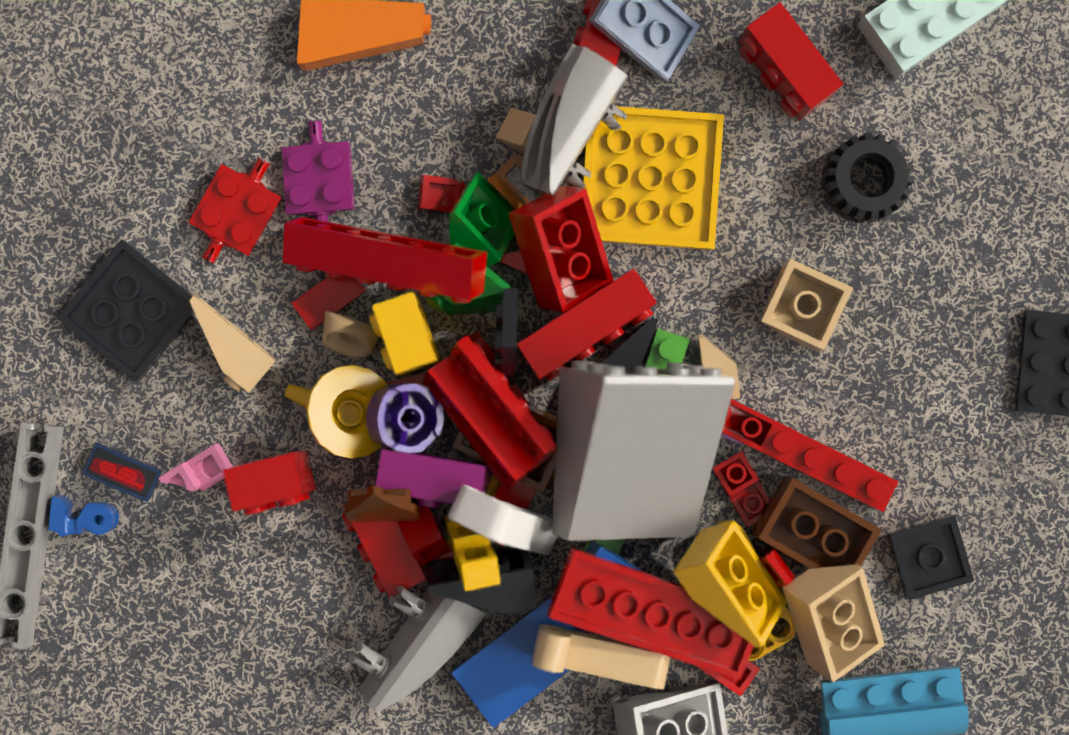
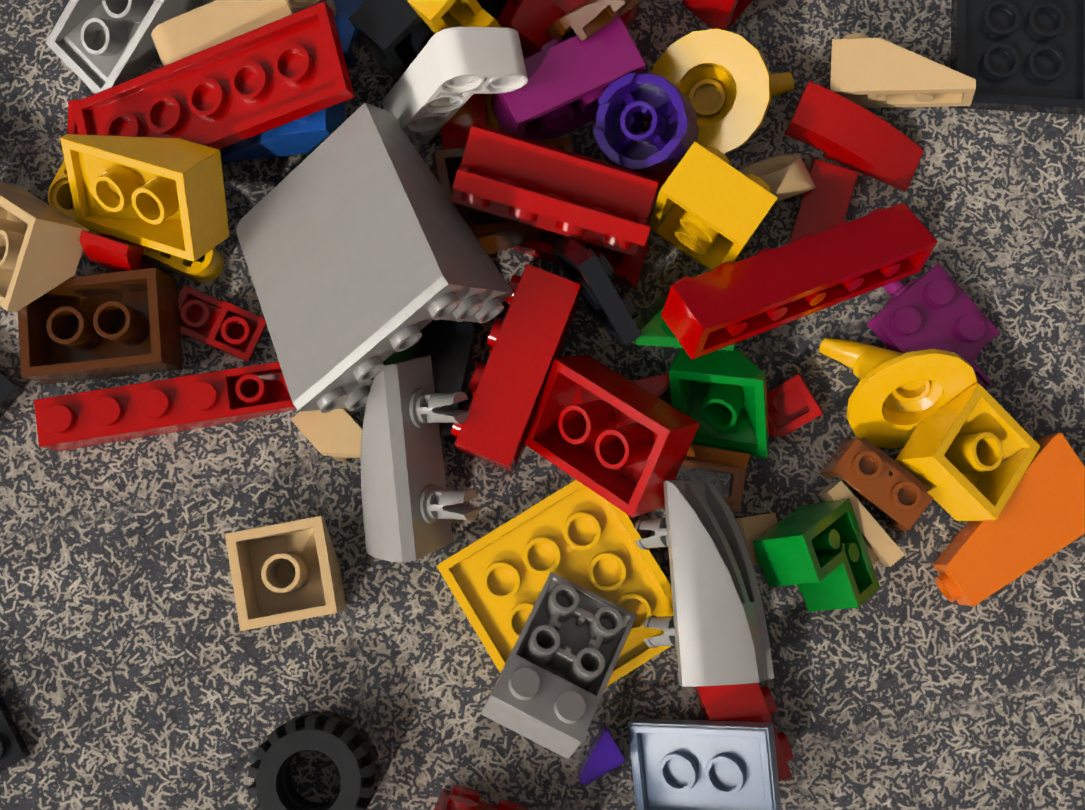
camera: 150 degrees right, 5 degrees down
(235, 210) = (995, 229): red plate -> none
(278, 325) = (854, 137): none -> red slope
(359, 88) = (969, 455): none -> yellow slope
(371, 152) = (897, 387): none -> yellow piece
(422, 112) = (880, 481): none -> dark orange window
(451, 82) = (877, 541): none -> tan plate
(489, 95) = (821, 554): none -> green brick
(683, 139) = (559, 666): none -> light grey slope
(696, 73) = (601, 757): none -> dark purple slope
(696, 313) = (403, 464): none -> light grey piece

